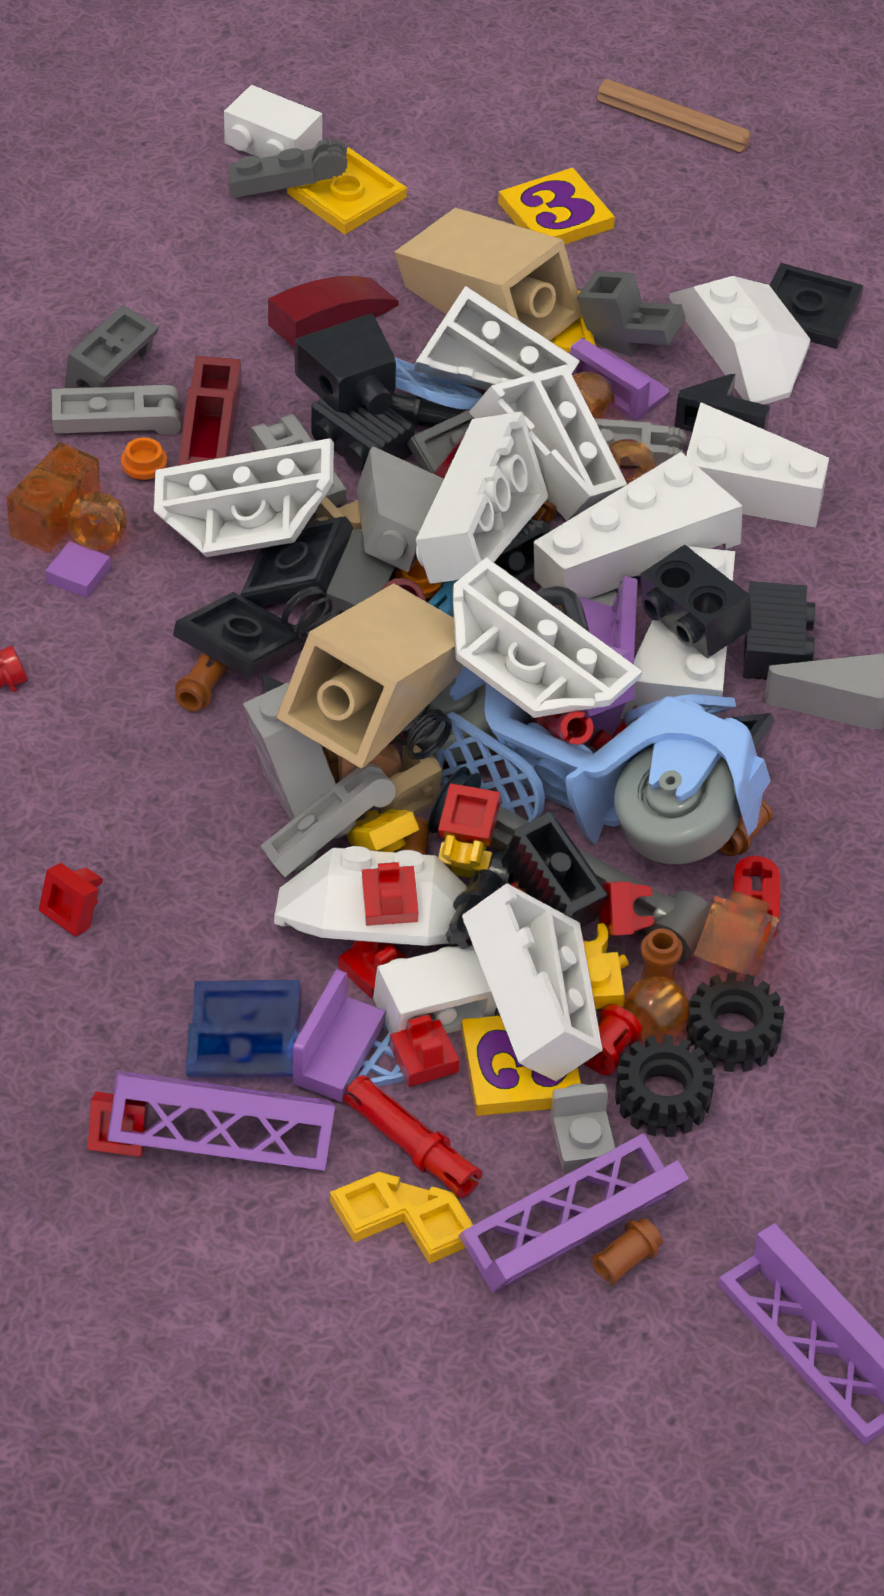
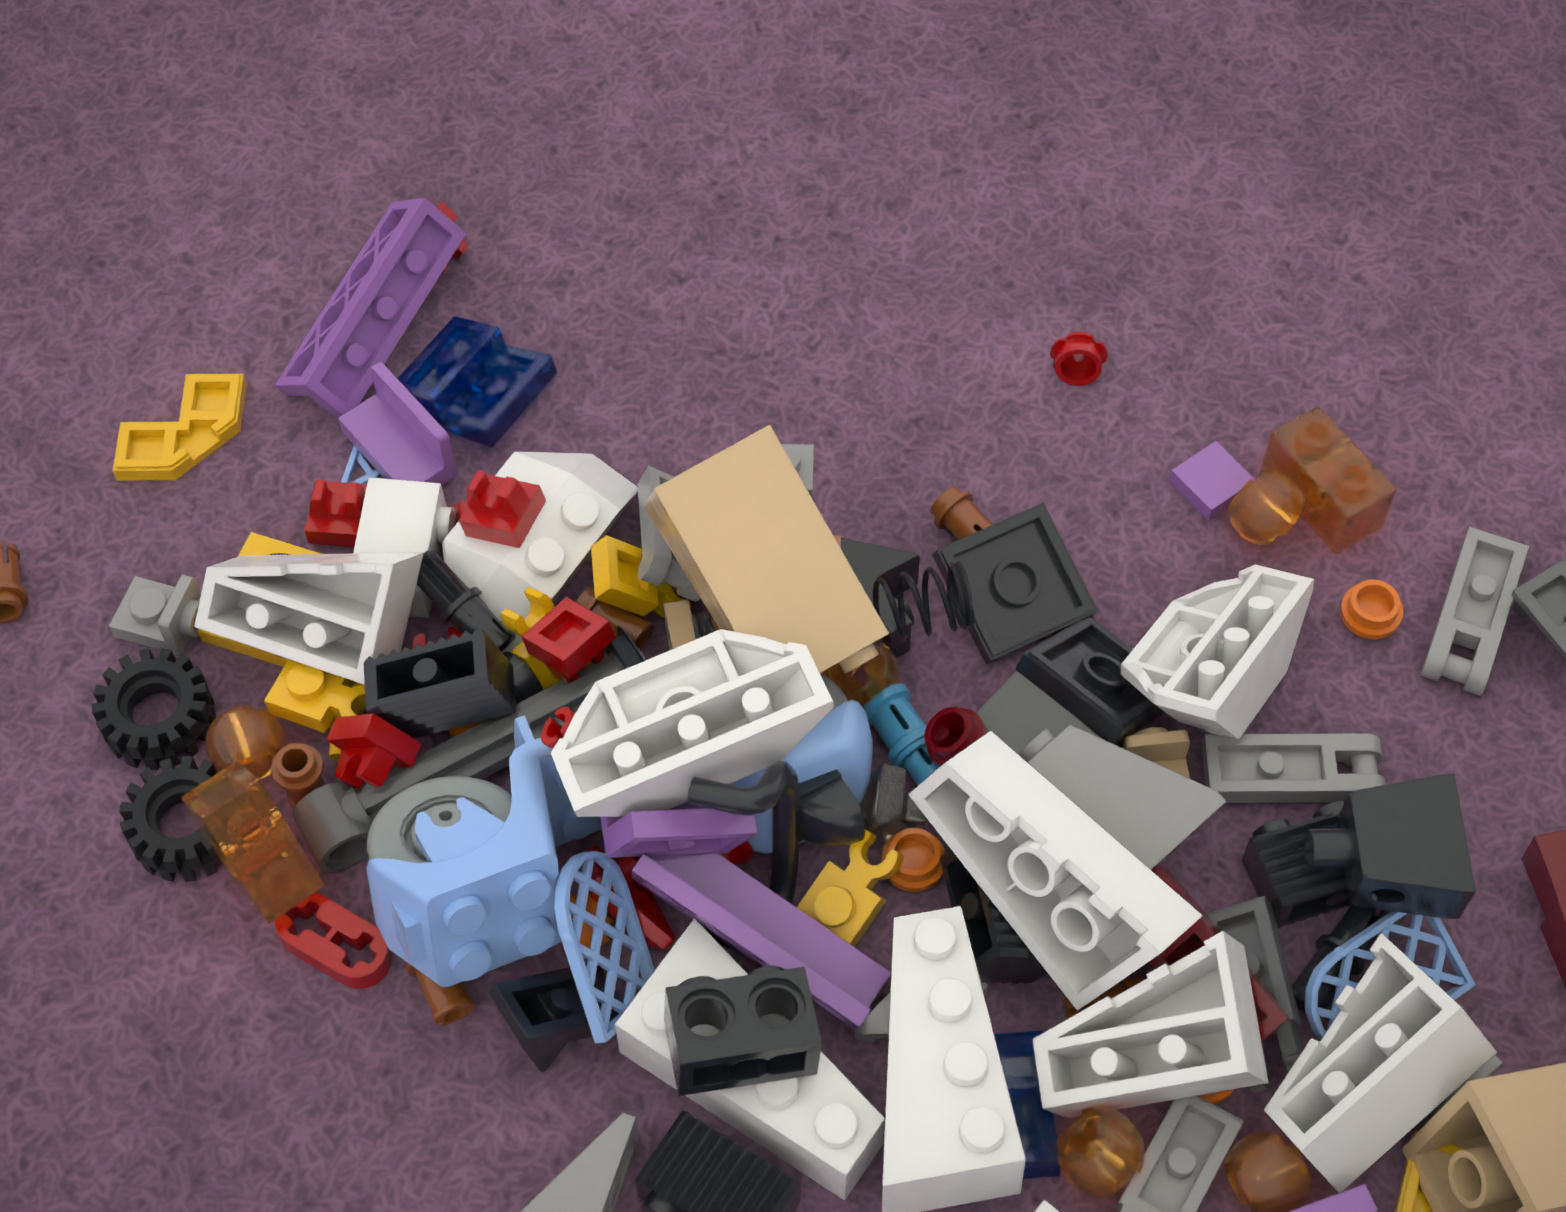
camera: 120 degrees right, 10 degrees up
(70, 897) = (719, 296): red tile -> none
(211, 409) = (1419, 704): dark red slope -> none
(428, 1149) = (184, 480): red pin -> none
(585, 1223) = (51, 560): medium lavender fence -> none
(613, 1038) = (239, 676): red bush -> none

